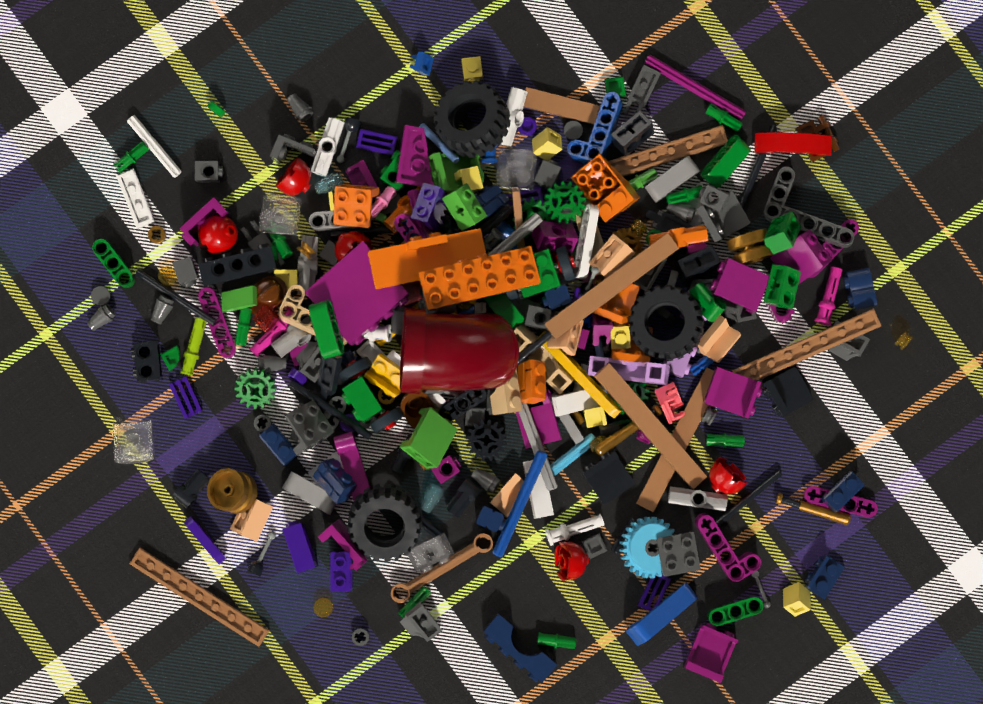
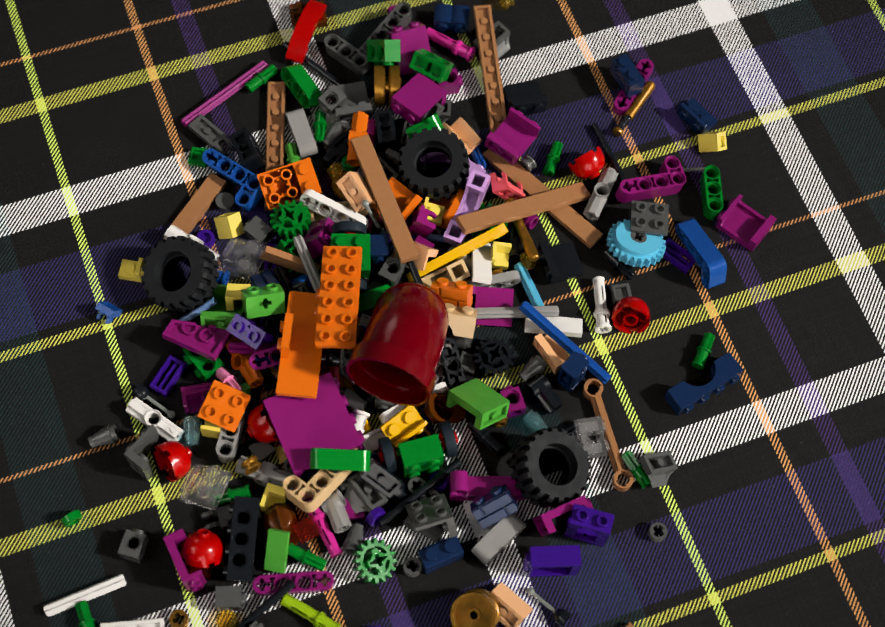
camera: 75 degrees left, 20 degrees down
(323, 607) = (618, 560): clear yellow tile -> none

